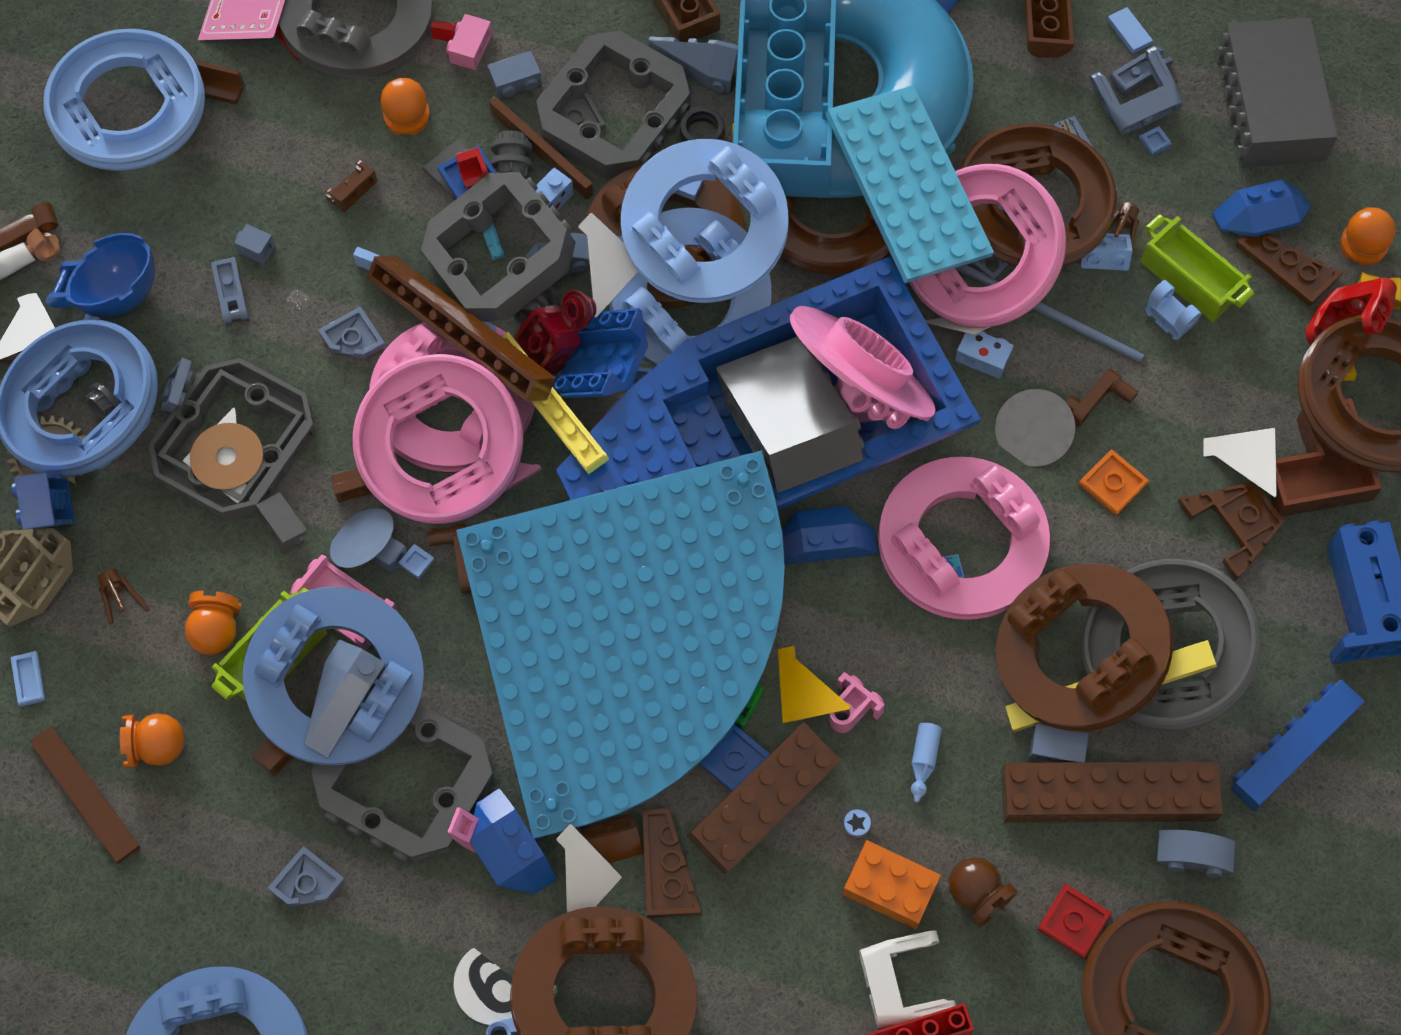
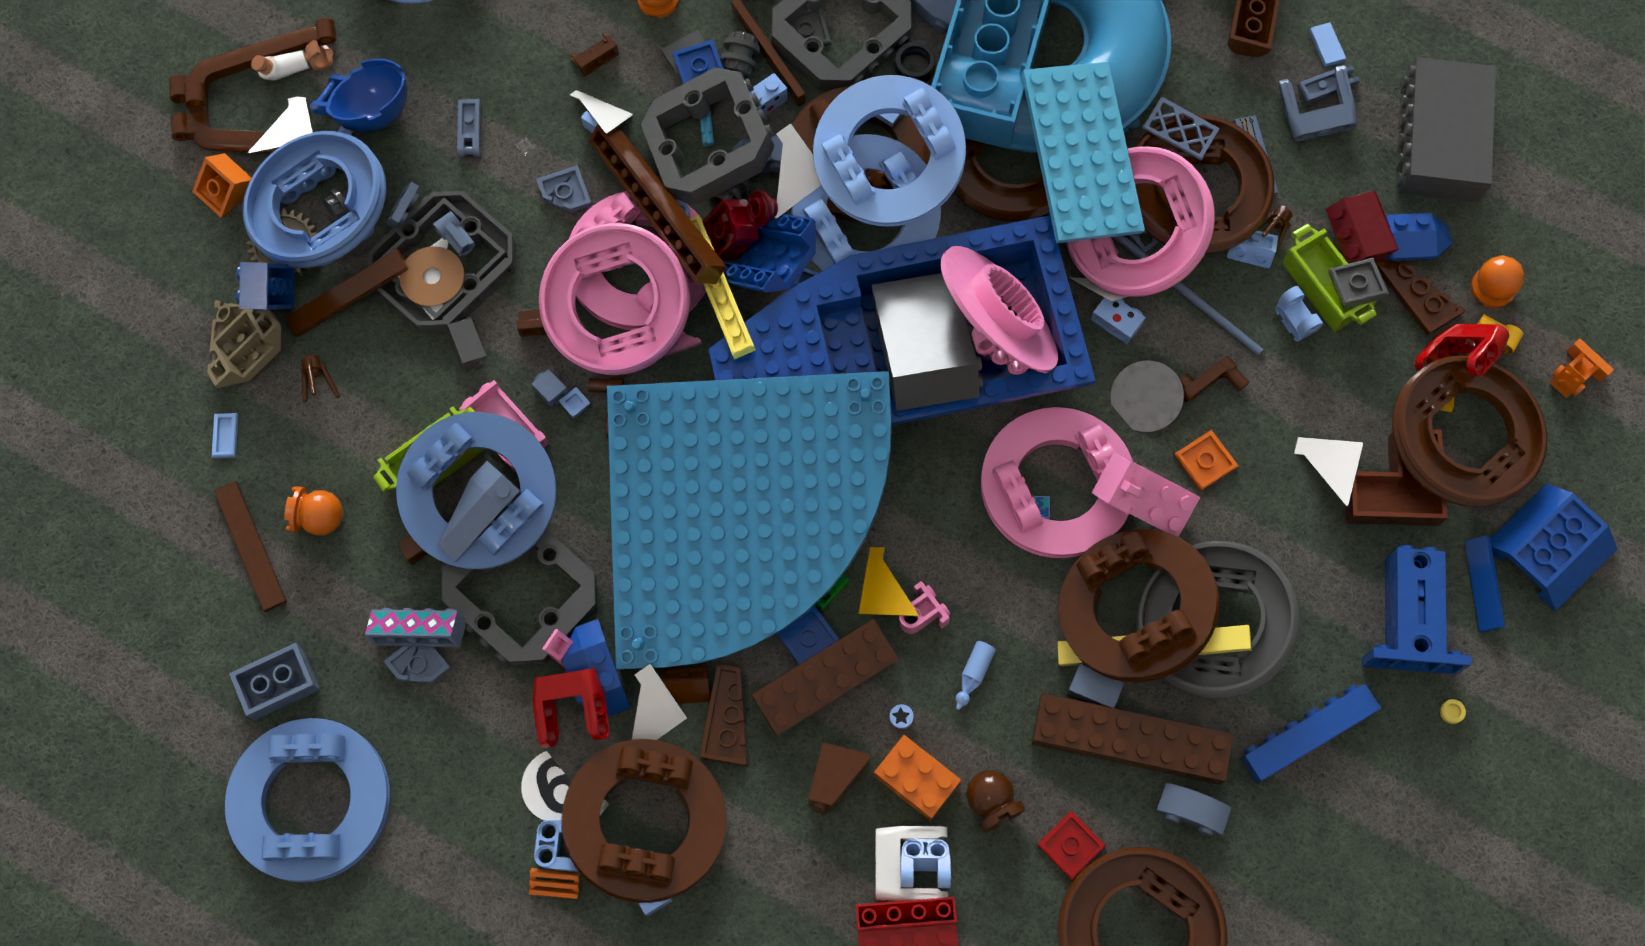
camera: 15 degrees right, 5 degrees up
(134, 493) = (347, 293): none -> reddish brown tile
(148, 937) = (274, 681): none -> sand blue brick
(211, 624) = (386, 422): orange tile -> none
(237, 401) = (451, 230): none -> sand blue piece
(254, 244) = (499, 90): sand blue brick -> none
(297, 842) = (416, 627): none -> sand blue brick
(362, 538) = (531, 372): sand blue sticker -> none
(379, 246) = (605, 114): none -> white sticker
(471, 167) = (700, 58): red panel -> none
(481, 868) = (566, 685): none -> red connector
(802, 901) = (835, 776): none -> reddish brown slope
(827, 536) = (935, 455): blue wedge -> none
(923, 967) = (925, 860): none -> light blue piece
(1018, 132) = (1178, 111): none -> sand blue window
(1061, 528) = (1145, 495): none -> bright pink hinge
(1155, 141) = (1324, 153): medium blue tile -> none
(1216, 210) = (1362, 228): none -> dark red slope
(1227, 265) = (1358, 283): none -> dark grey tile
(1245, 514) = (1318, 515): reddish brown wing -> none

